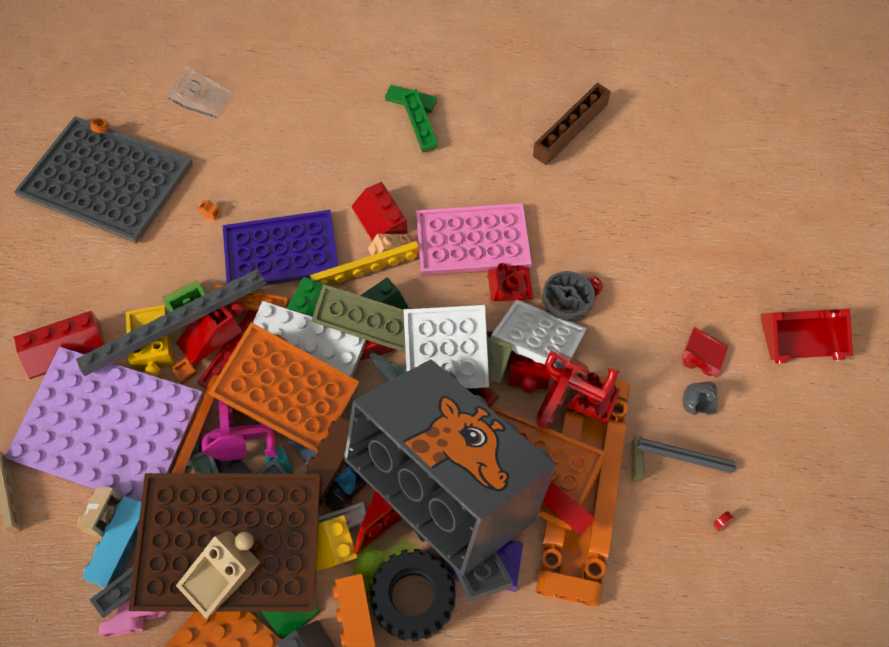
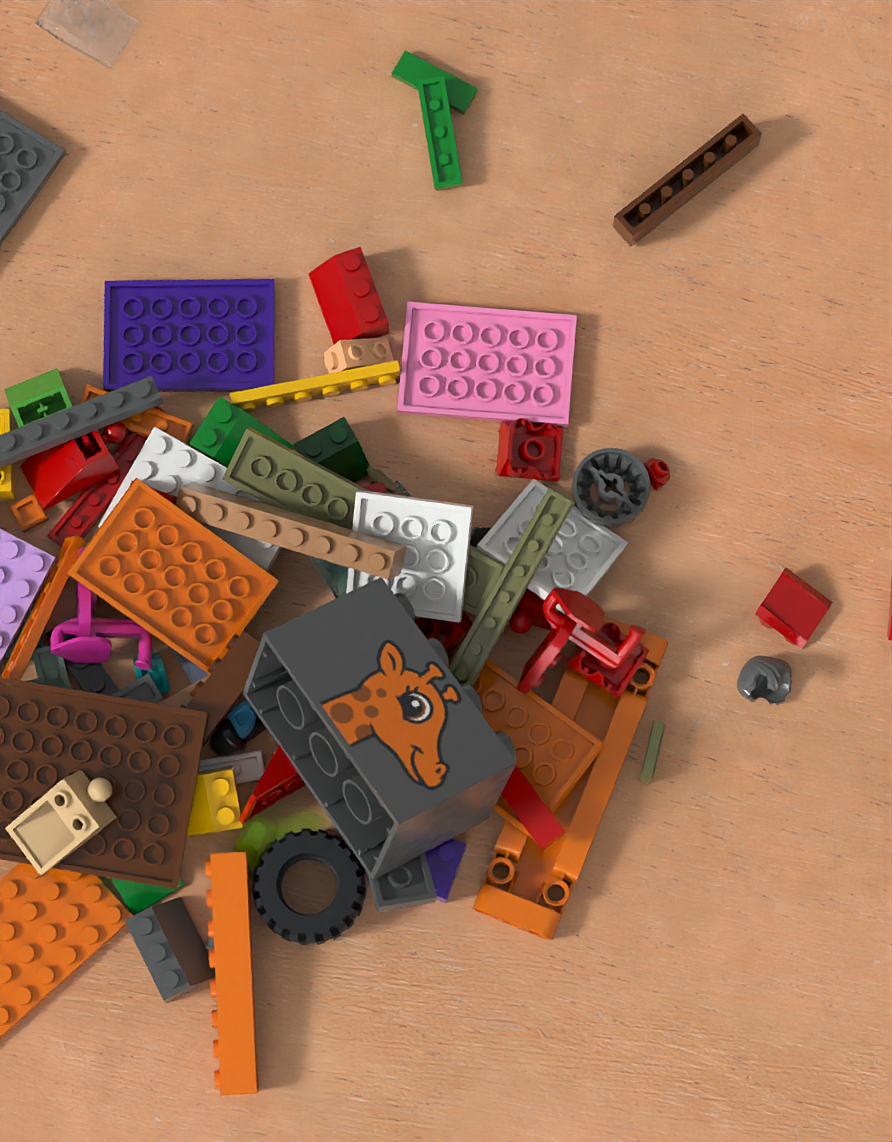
camera: 10 degrees right, 15 degrees up
(209, 209) = (85, 246): orange piece -> none
(365, 343) = (292, 530): none -> medium nougat brick
(521, 353) = (510, 587): none -> olive tile
(686, 455) = (720, 760): dark grey axle -> none
(723, 521) = (748, 858): red tile -> none

